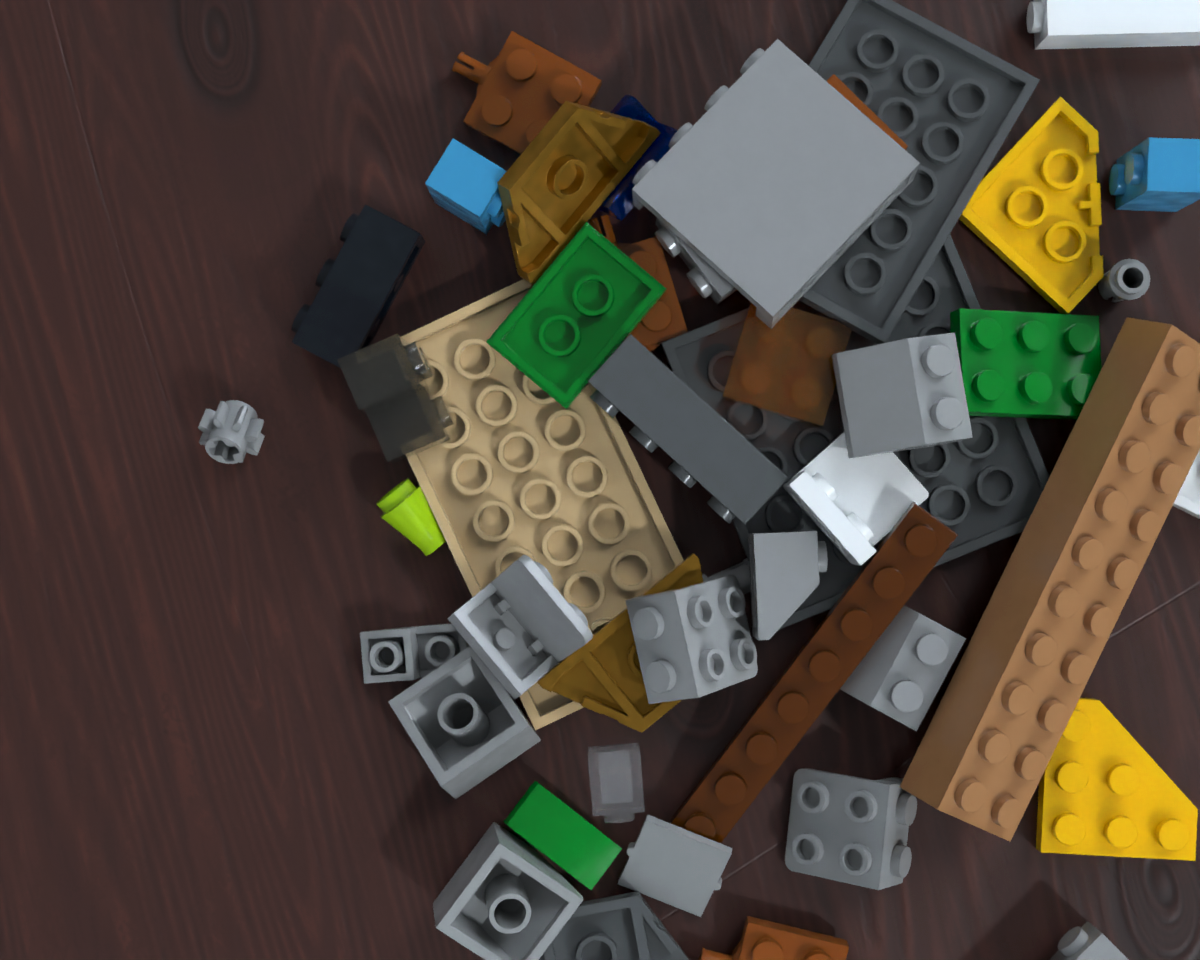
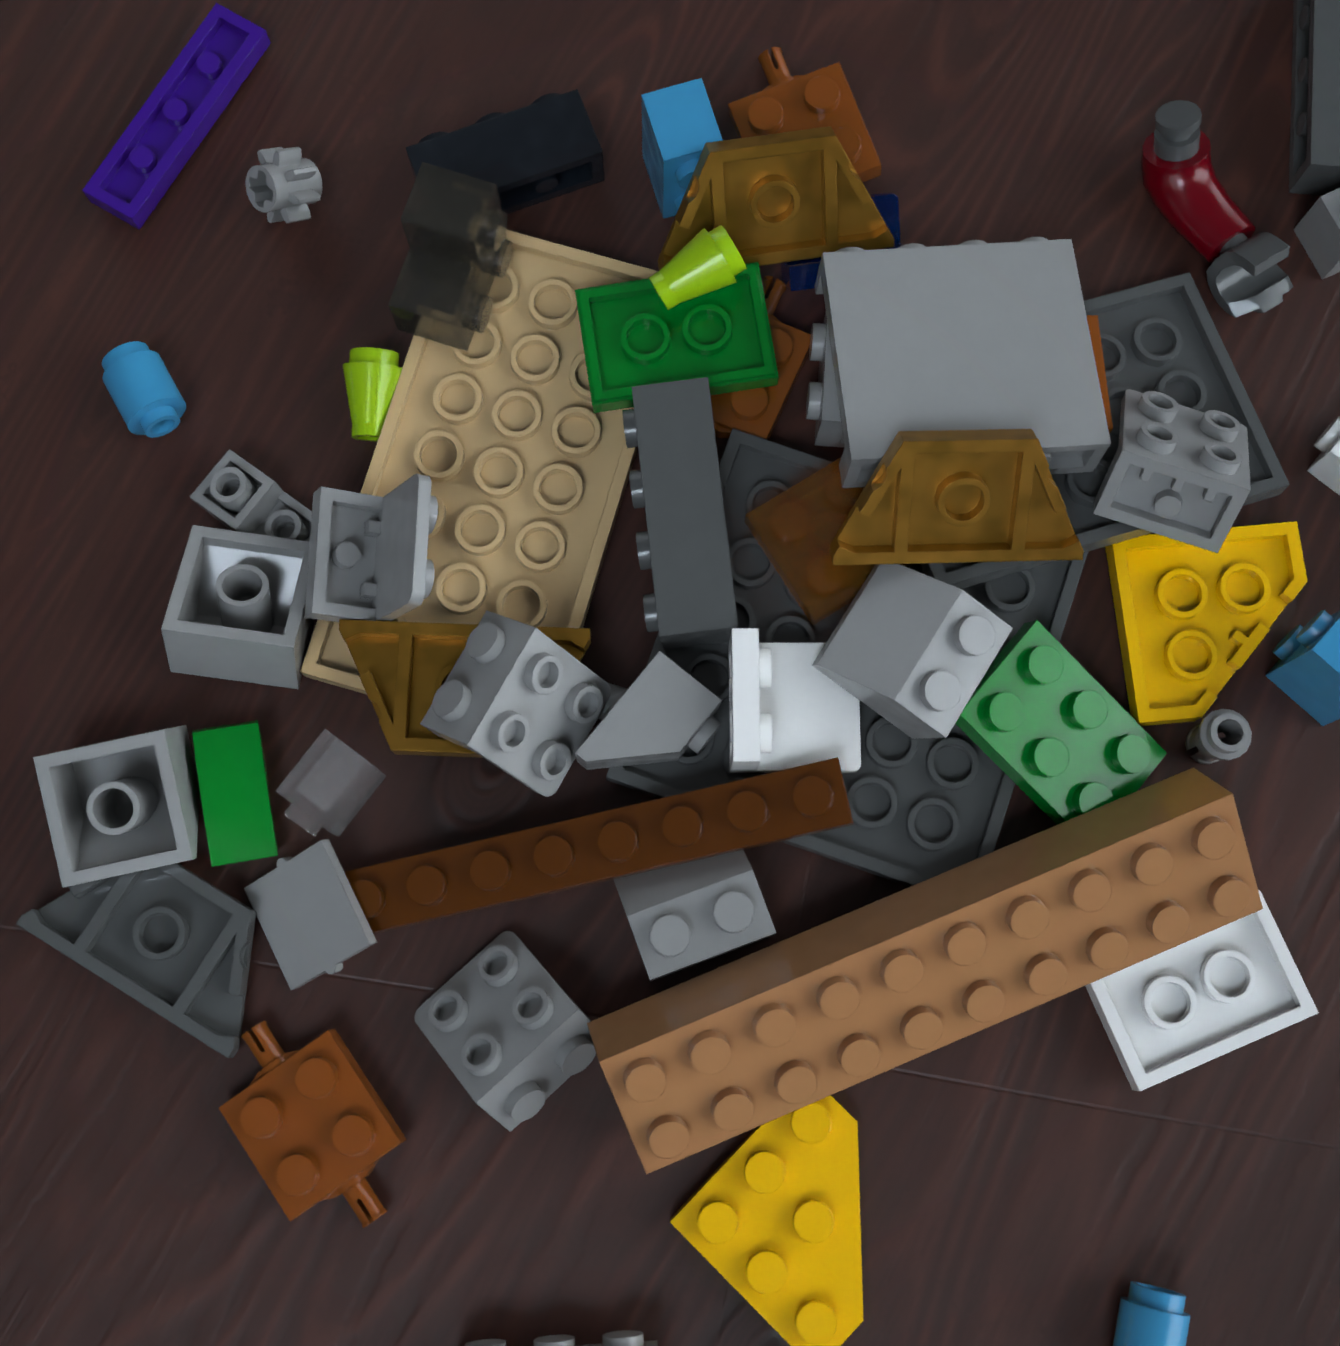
camera: 40 degrees right, 10 degrees down
(114, 443) = (177, 116): none -> dark purple plate
(269, 642) = (142, 389): none -> dark azure brick
(558, 264) = (699, 268): none -> lime cone
(858, 285) = (958, 502): none -> pearl gold wing
(967, 135) = (1176, 470): none -> light grey bracket

